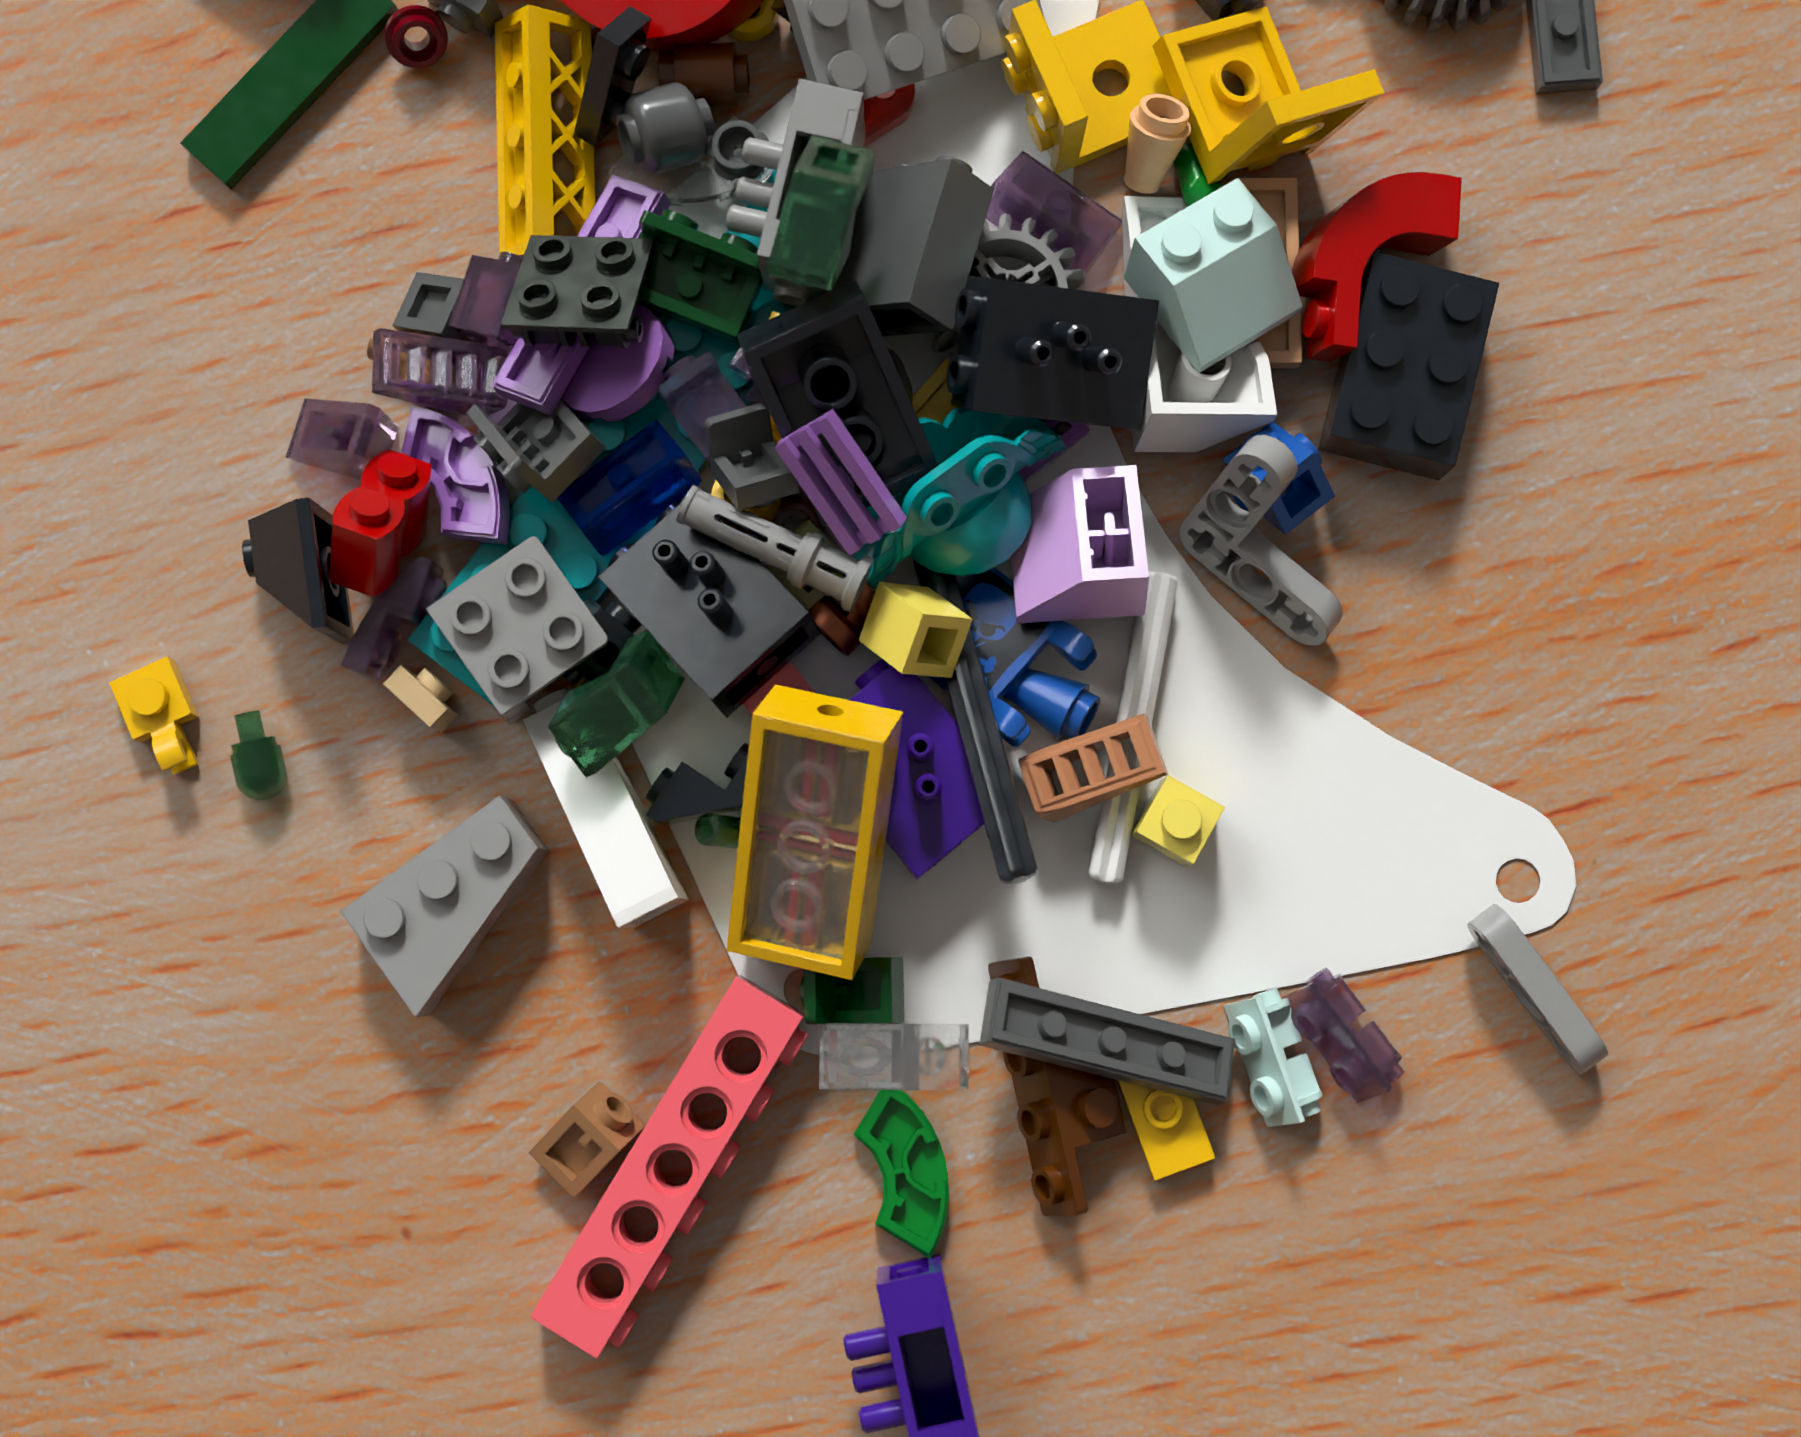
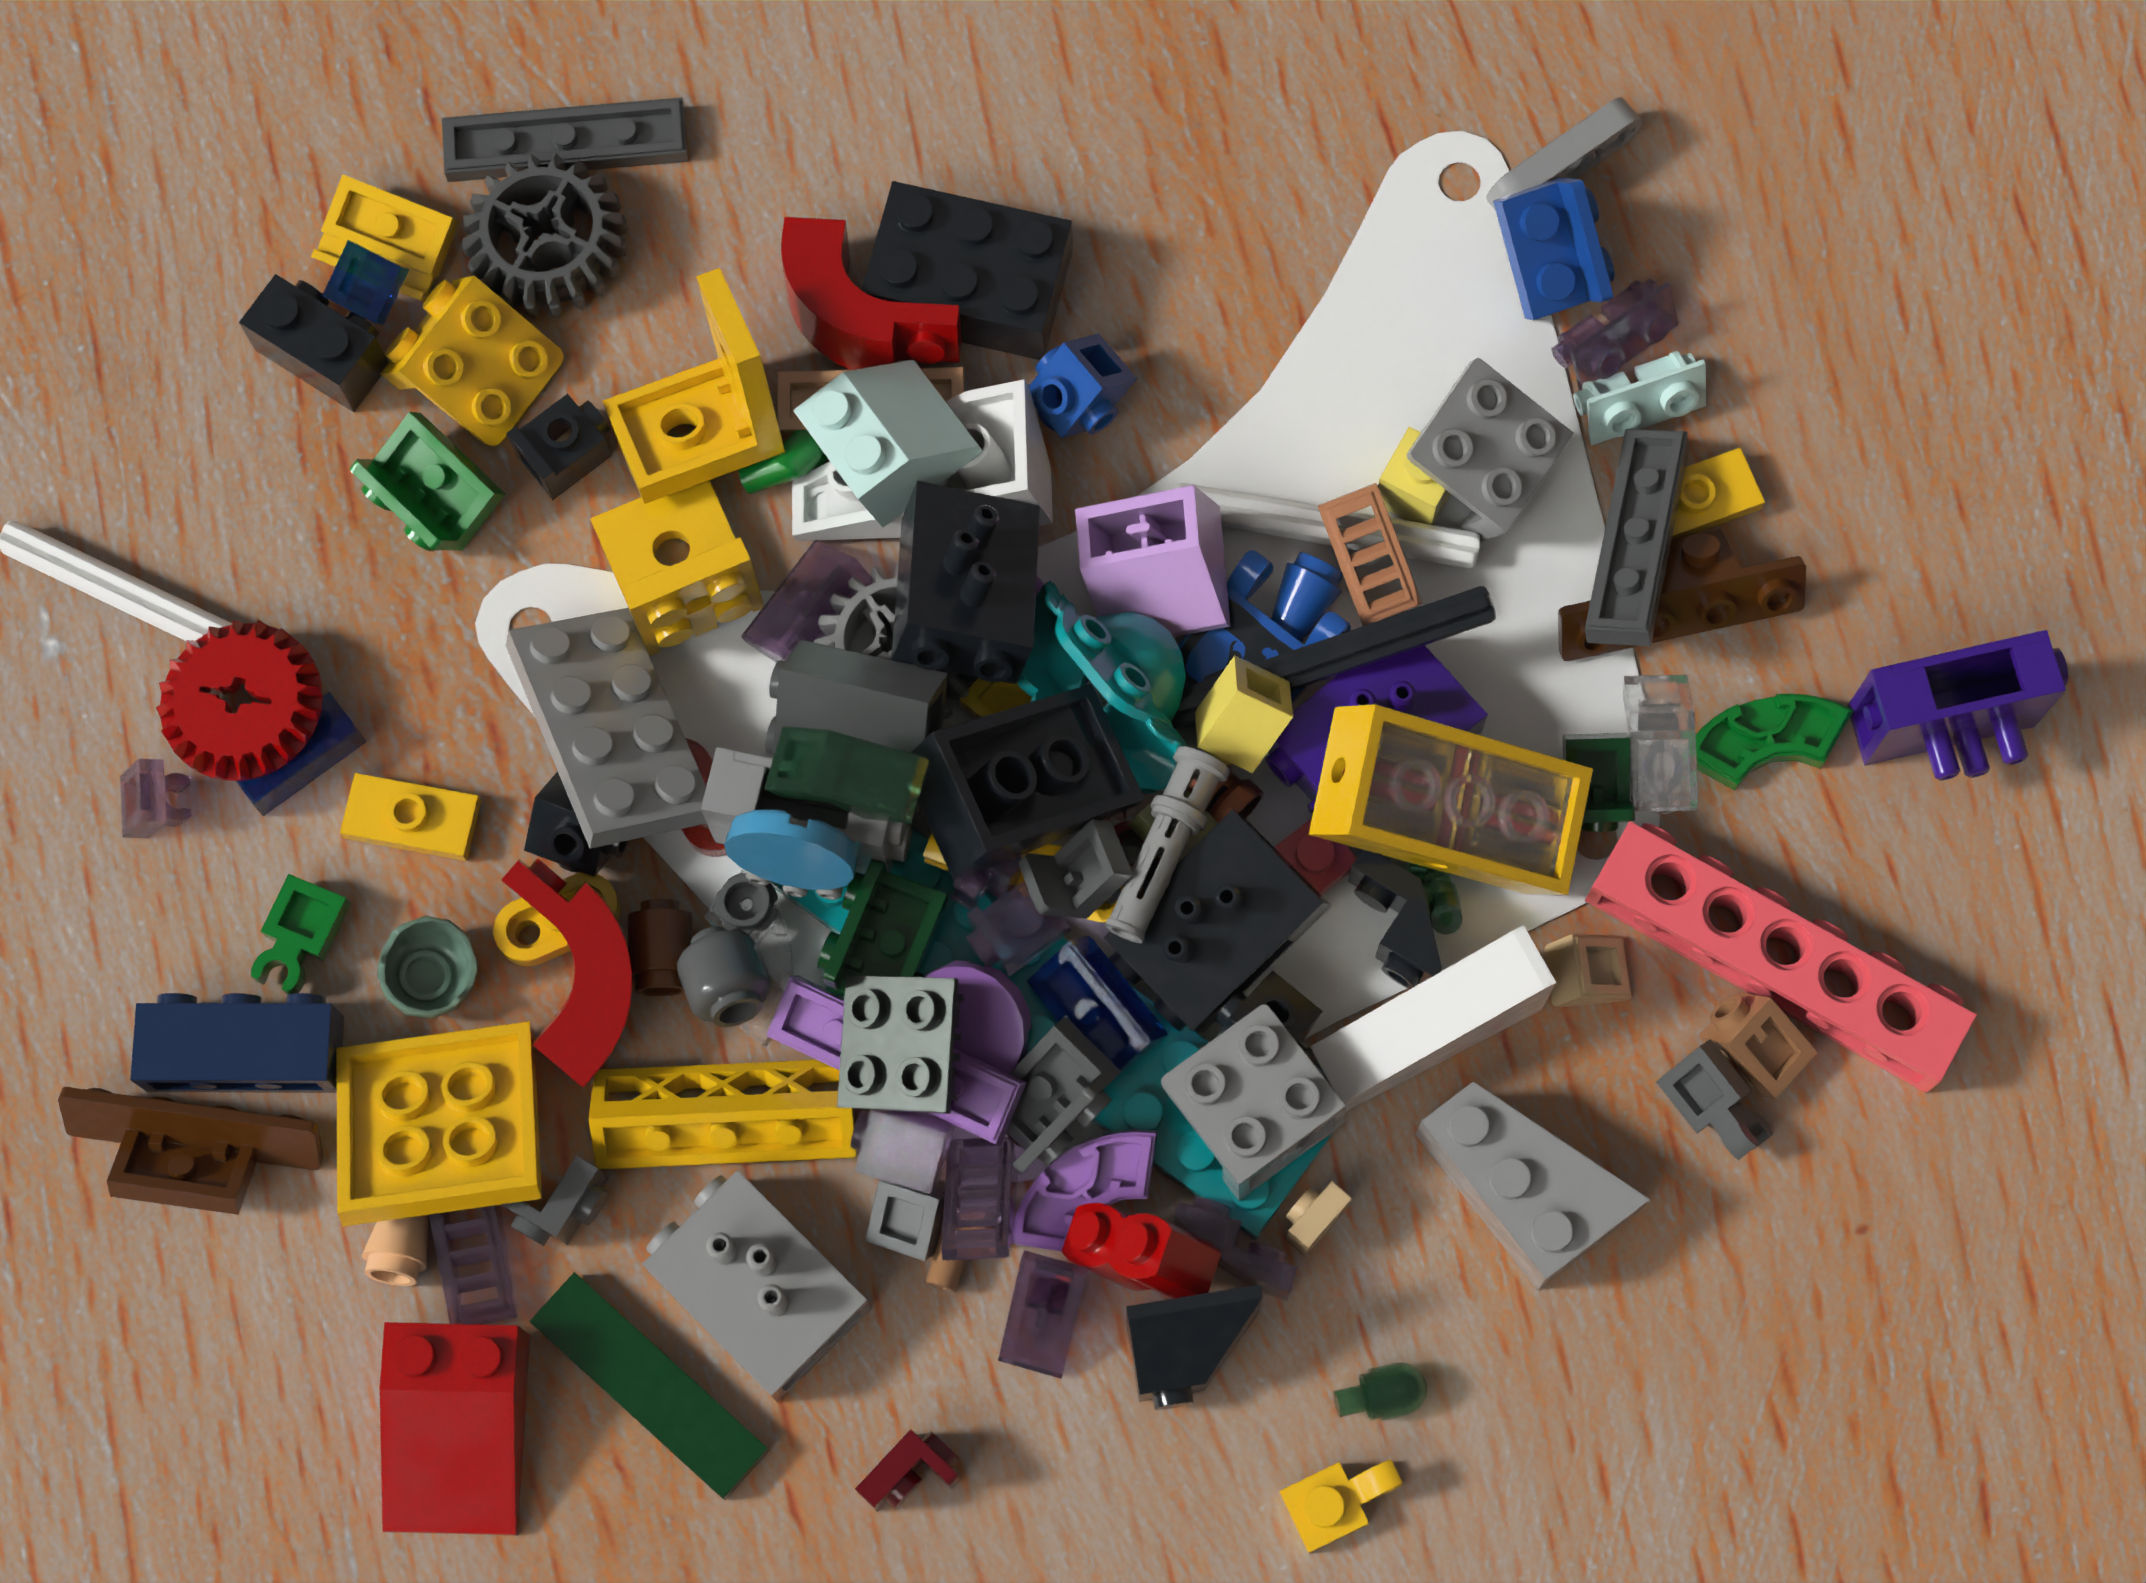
camera: 90 degrees left, 10 degrees down
(208, 318) = (895, 1474): none -> dark red bracket
(376, 167) = (755, 1284): none -> light grey piece
(420, 53) = (612, 1247): dark red plate -> none
(532, 1092) = (1709, 1092): none -> dark grey plate
(614, 67) = (686, 1035): black plate -> none
(618, 706) = (1337, 991): clear green slope -> none
(667, 975) = (1588, 970): none -> tan slope
(755, 166) = (789, 853): none -> dark azure tile
(832, 488) = (1149, 745): medium lavender tile -> none
(1154, 140) = (741, 501): light nougat cone -> none
(1201, 888) = (1489, 447): none -> light grey bracket
(1227, 544) = (1140, 431): light grey beam -> none
(1434, 970) = (1555, 247): none -> blue bracket

